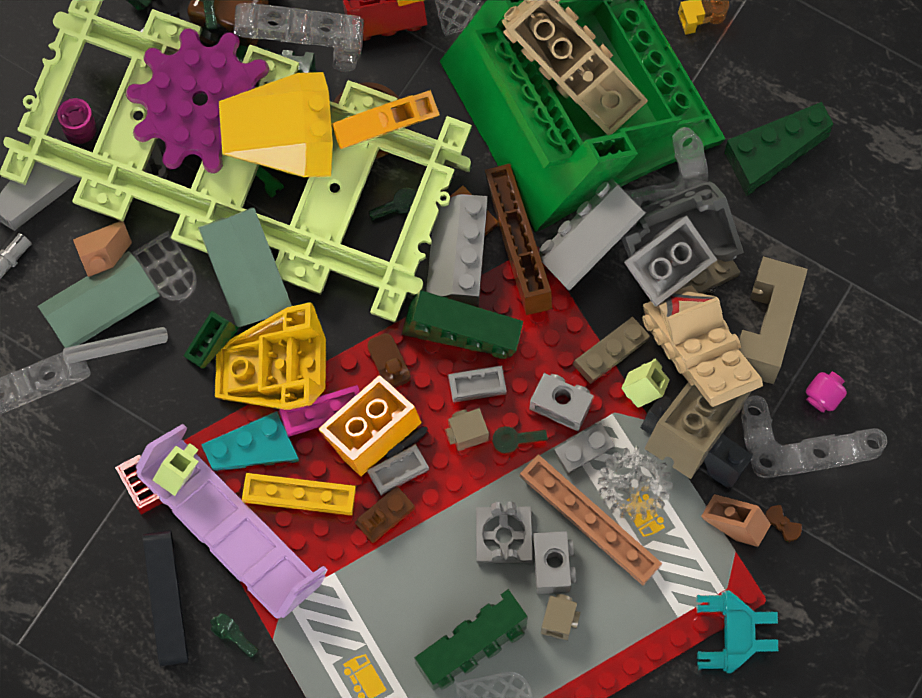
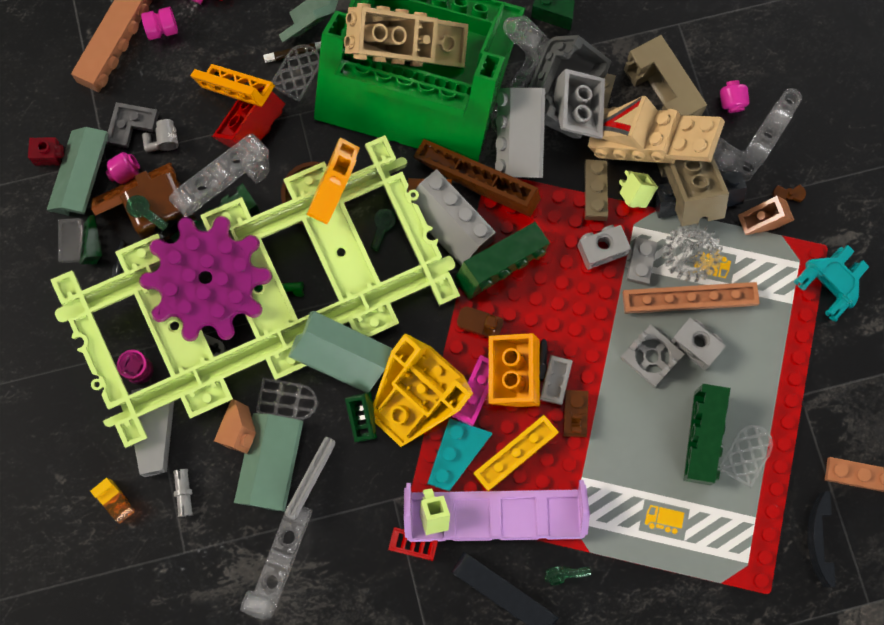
camera: 45 degrees left, 5 degrees up
(281, 125) = (274, 244): yellow wedge -> none
(467, 429) = (569, 316): dark tan brick -> none
(477, 384) = (545, 284): light grey plate -> none
(507, 439) = (596, 299): clear green plate -> none
(560, 617) = (735, 370): dark tan brick -> none

